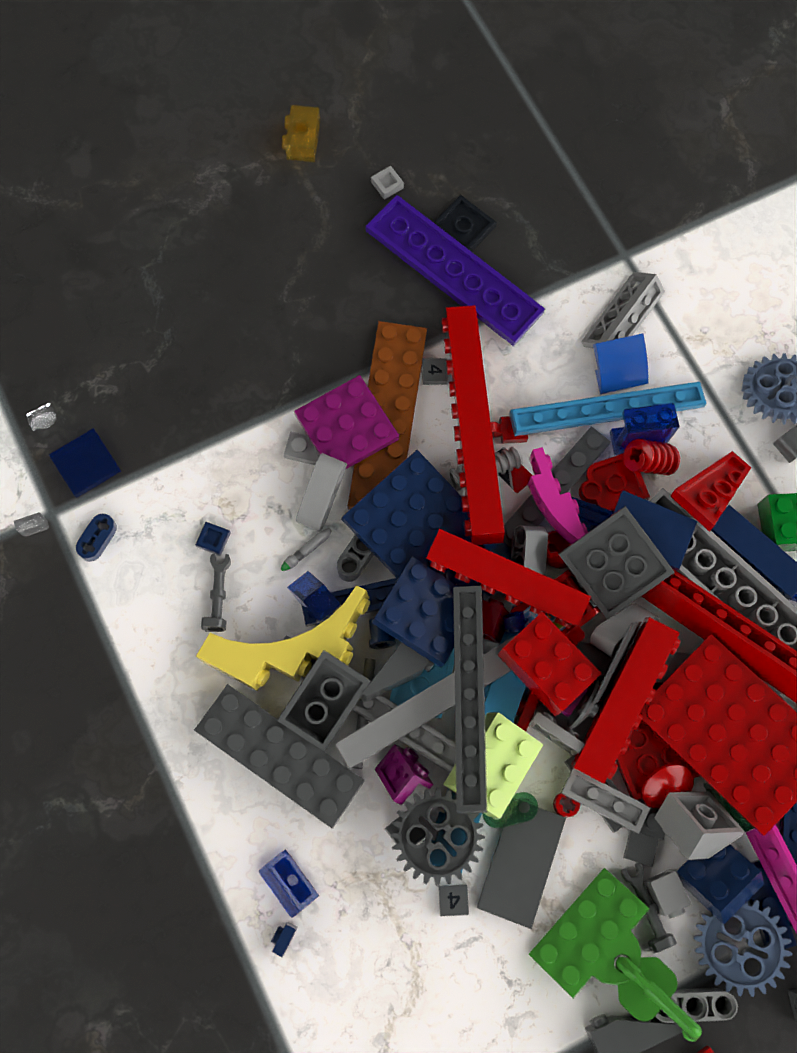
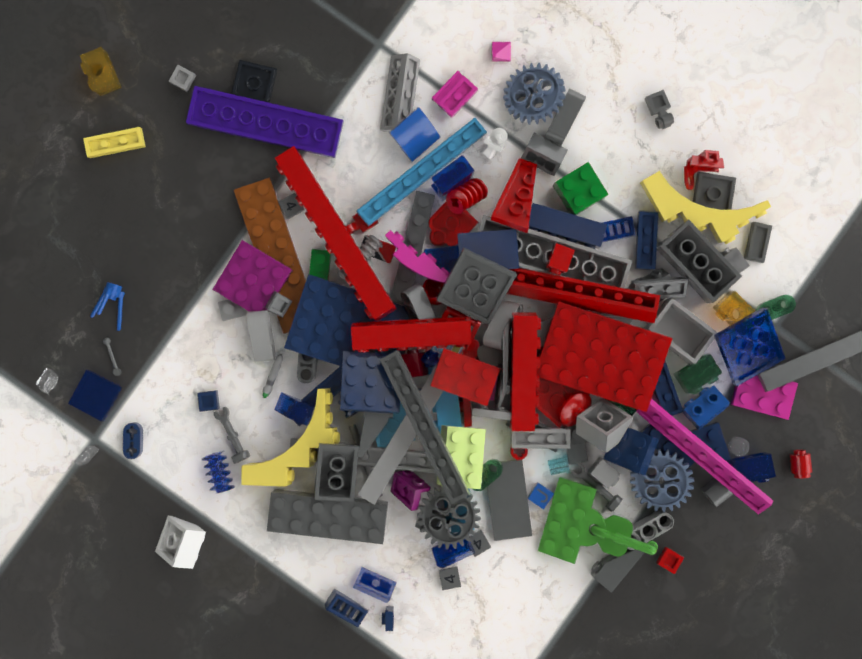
camera: 25 degrees left, 15 degrees up
(77, 690) = (180, 542): none -> white slope
(126, 449) = (116, 371): none -> dark grey hinge
(175, 359) = (111, 292): none -> blue plant
(175, 626) = (217, 472): none -> clear blue piece
(224, 871) = (329, 605): none -> dark blue slope
(274, 209) = (114, 142): none -> light yellow plate
(362, 466) = (278, 304): none -> dark grey tile
(392, 928) = (449, 578): none -> dark grey tile
(413, 895) = (446, 557): none -> clear blue slope
(436, 448) = (320, 263): none -> green plate
(567, 880) = (540, 495): none -> blue tile
(611, 851) = (559, 465): none -> clear light blue bush
(688, 345) = (455, 94): none -> dark pink plate
(712, 417) = (495, 142): none -> white hips
(736, 583) = (560, 259): none -> red brick
(763, 329) = (501, 51): none -> dark pink slope
(766, 461) = (544, 153): none -> dark grey brick

